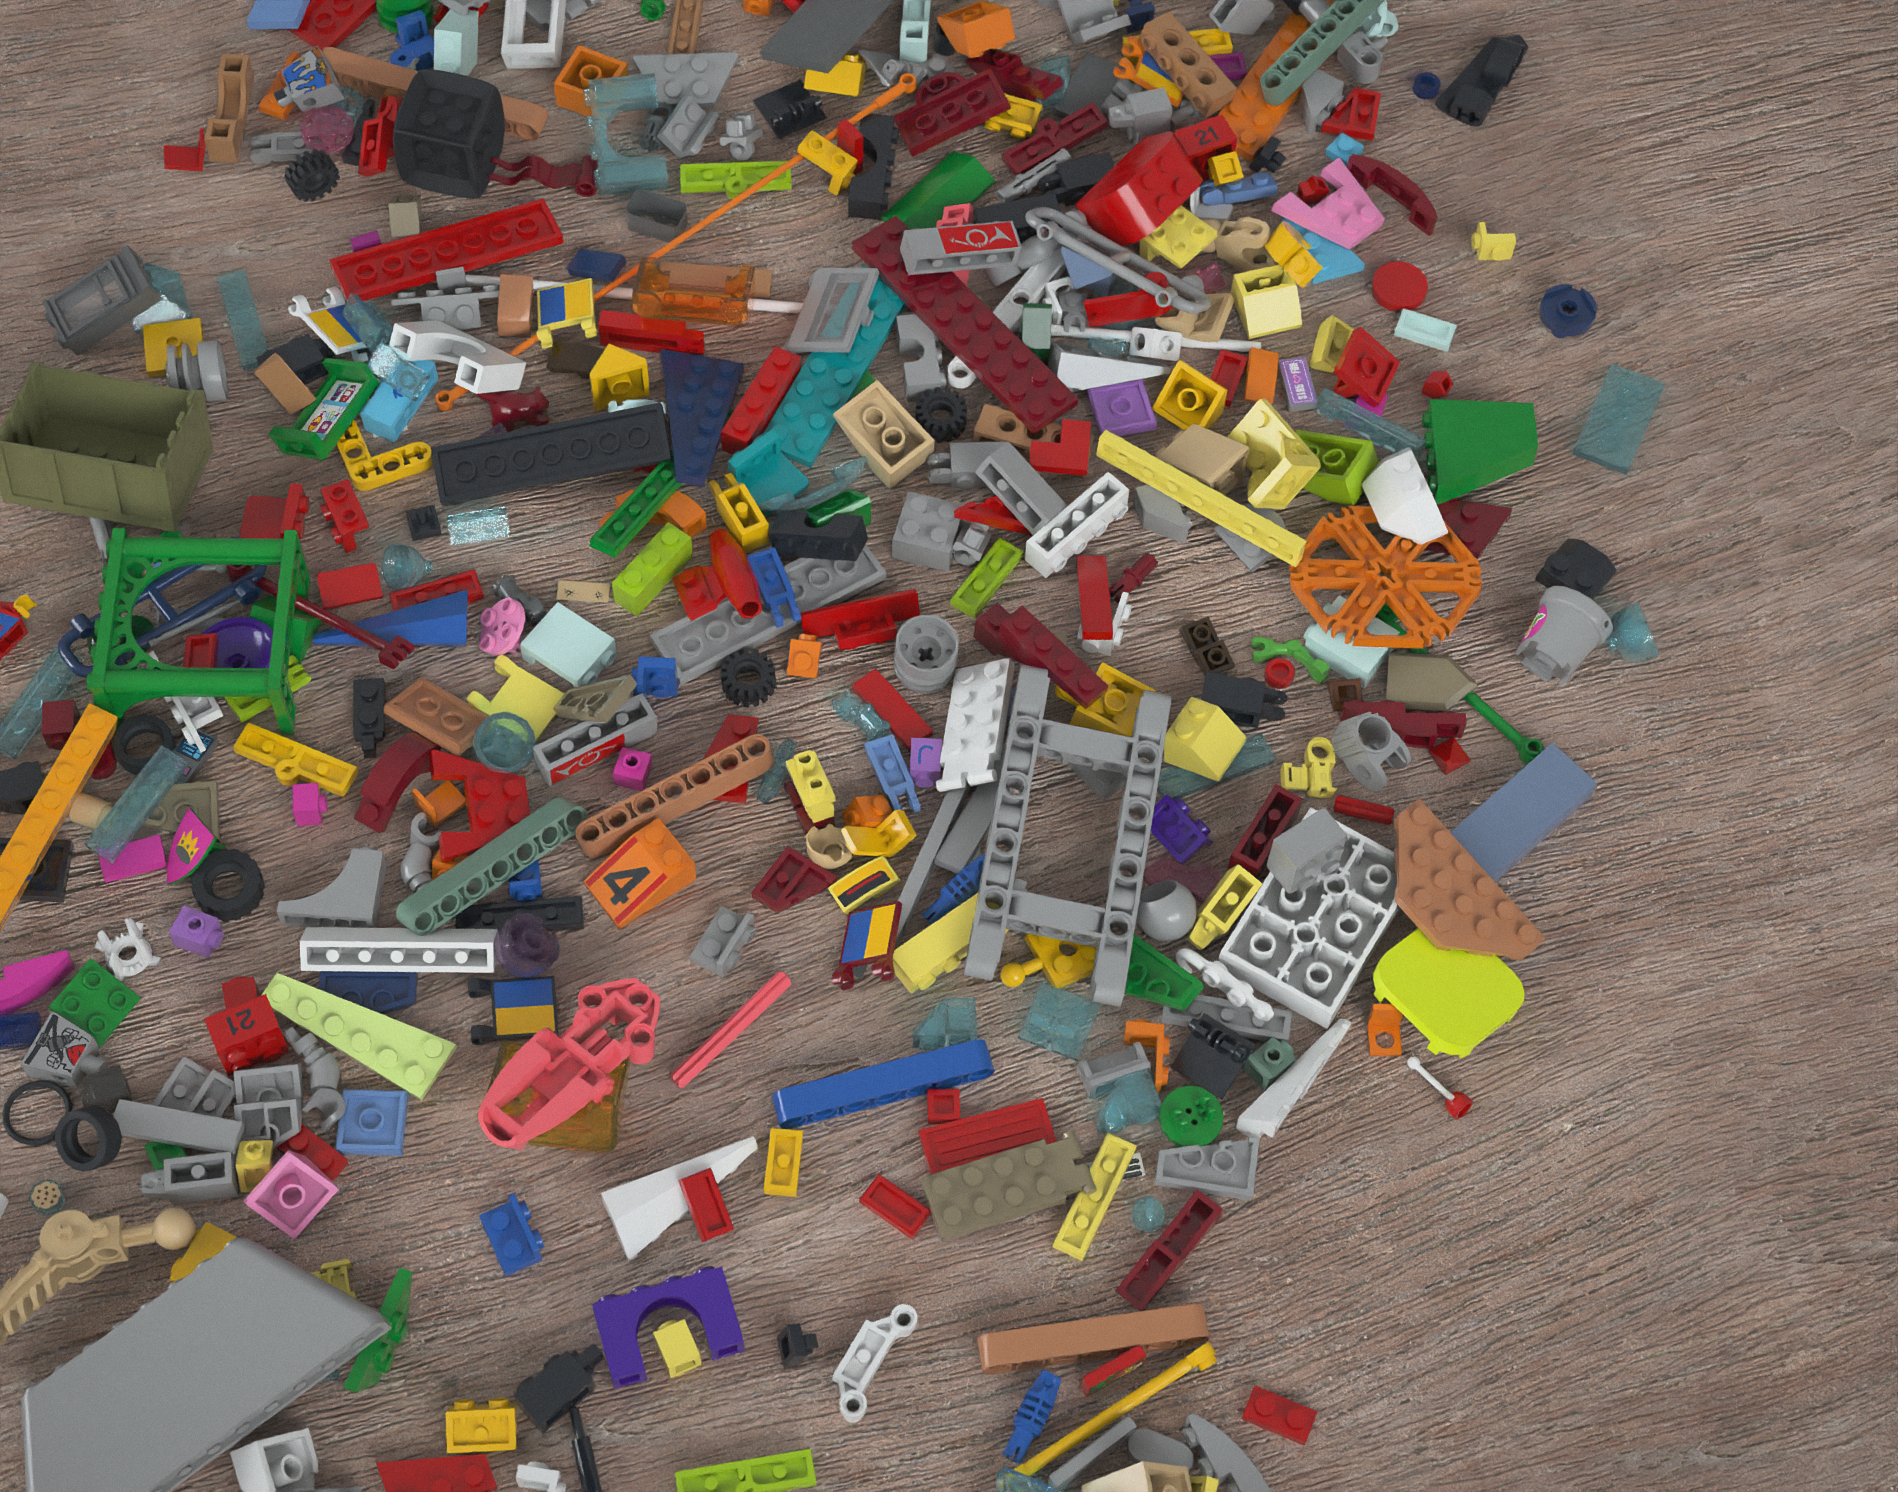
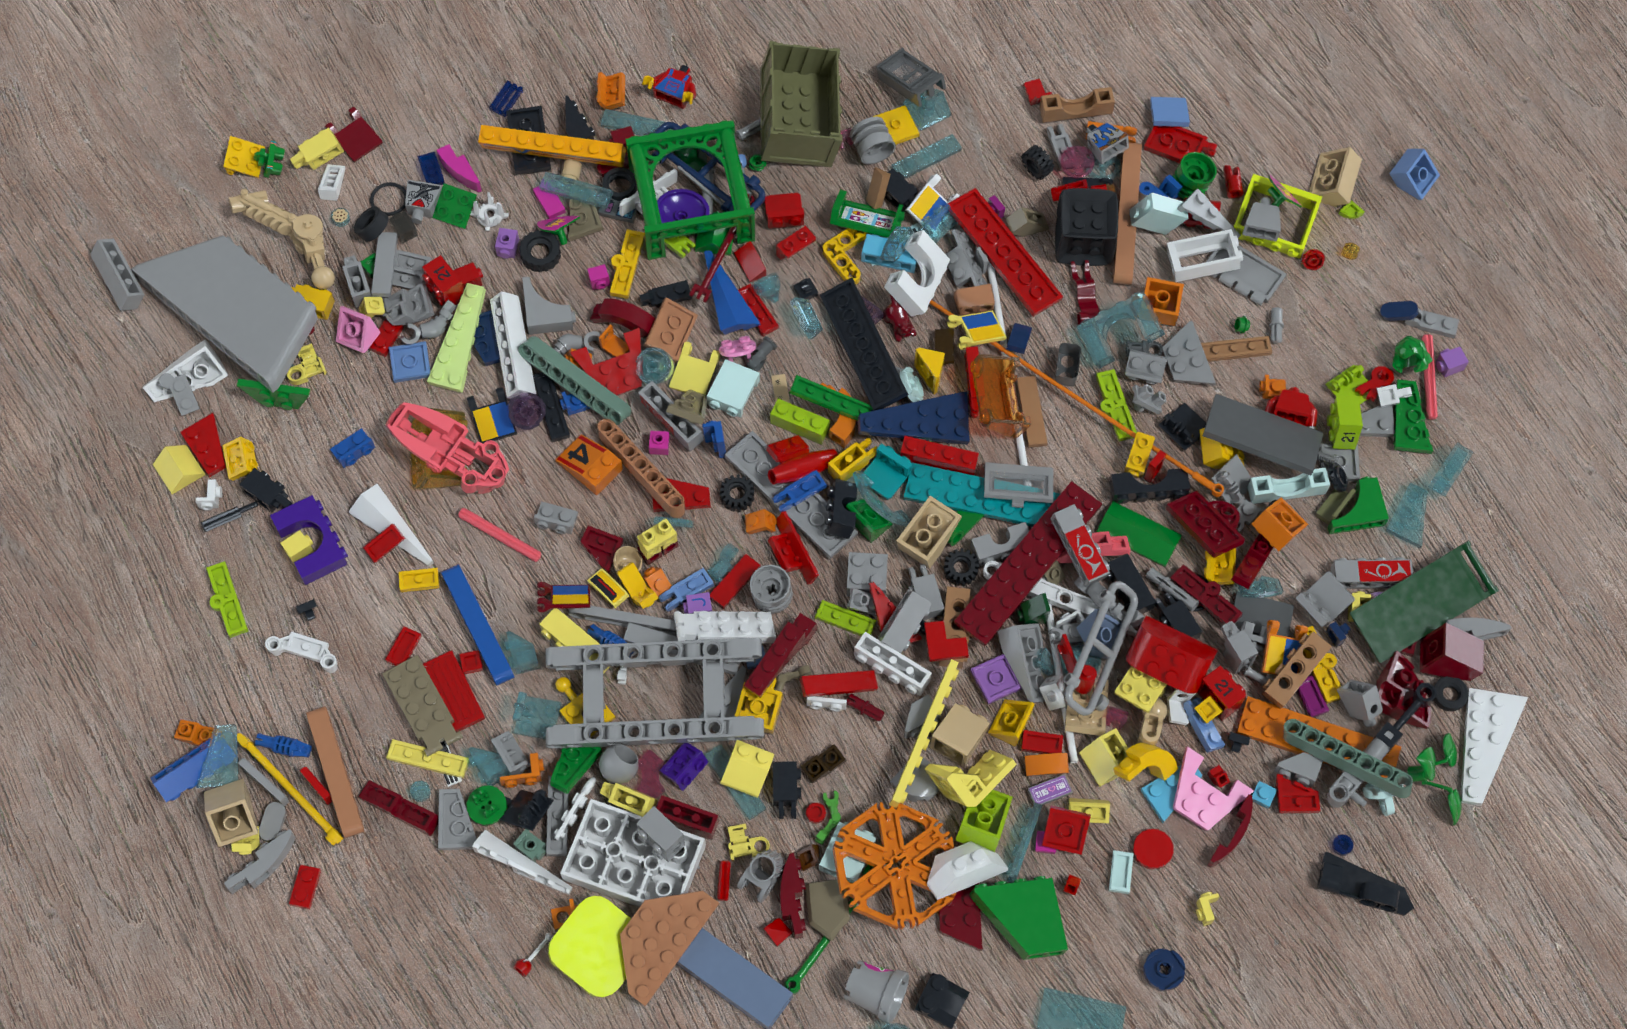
camera: 80 degrees right, 5 degrees up
(201, 651) = (673, 194): red tile -> none

